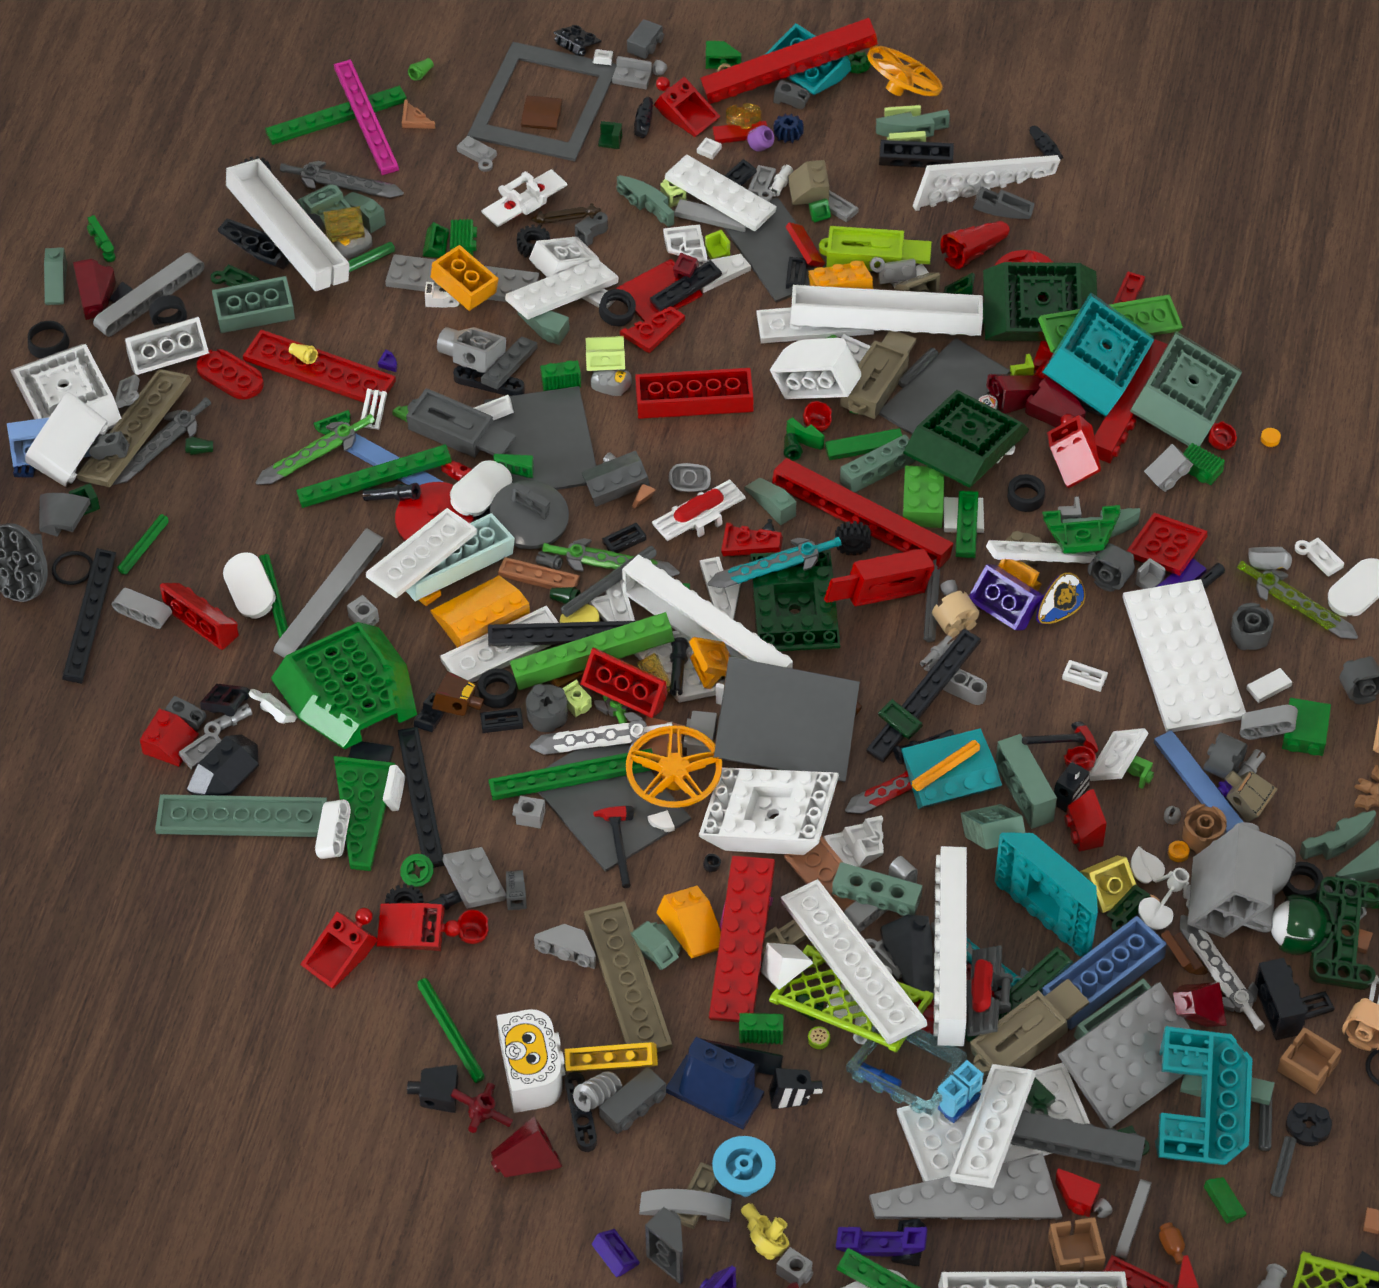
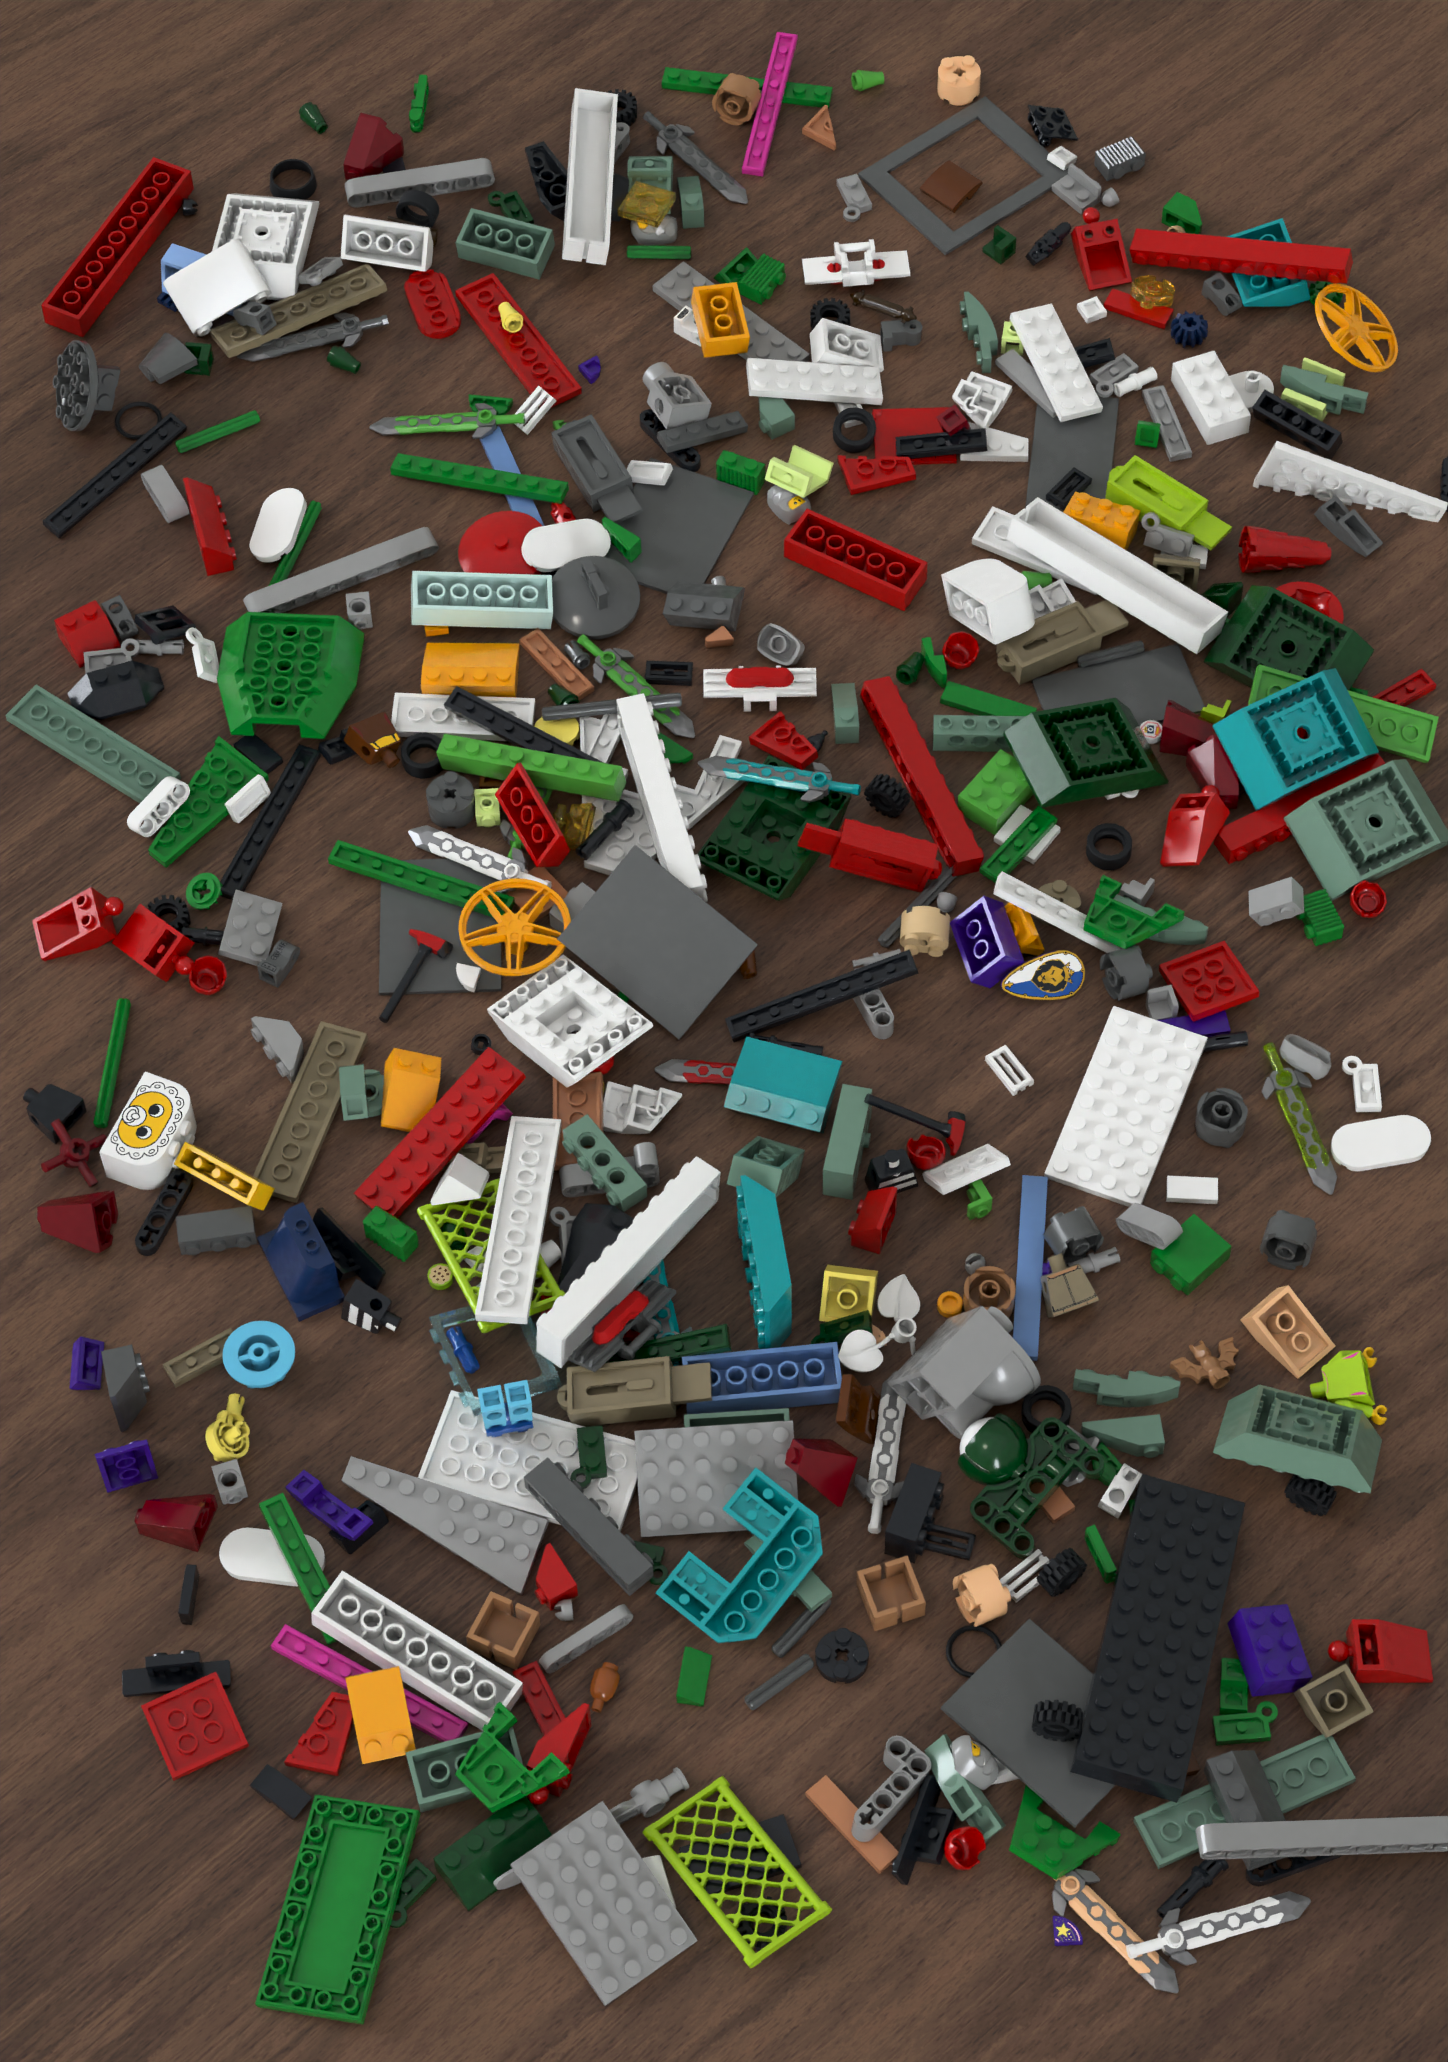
camera: 35 degrees right, 5 degrees up
(26, 287) = (312, 116): none -> dark green cone
(55, 275) = (346, 117): sand green slope -> none
(341, 124) = (736, 99): none -> medium nougat brick
(399, 492) = (483, 506): black pin -> none
(421, 553) = (442, 578): white plate -> none
(488, 38) = (958, 80): none -> light nougat brick
(501, 723) = (401, 792): black tile -> none
(532, 818) = (355, 902): light grey brick -> none
(596, 1090) = (186, 1199): light grey piece -> none
(686, 1202) = (186, 1359): light grey slope -> none
(709, 660) = (638, 831): light orange bracket -> none
(717, 245) = (1009, 416): lime panel -> none
(760, 138) = (1148, 325): medium lavender head -> none
(805, 245) = (1100, 462): red tile -> none
(809, 183) = (1158, 399): dark tan slope -> none
(849, 164) = (1215, 400): none -> white brick
(900, 719) = (776, 1007): dark green tile -> none
(945, 765) = (772, 1078): light orange axle -> none
(992, 1126) = (512, 1461): white plate -> none
(1270, 437) = (1423, 929): light orange tile -> none

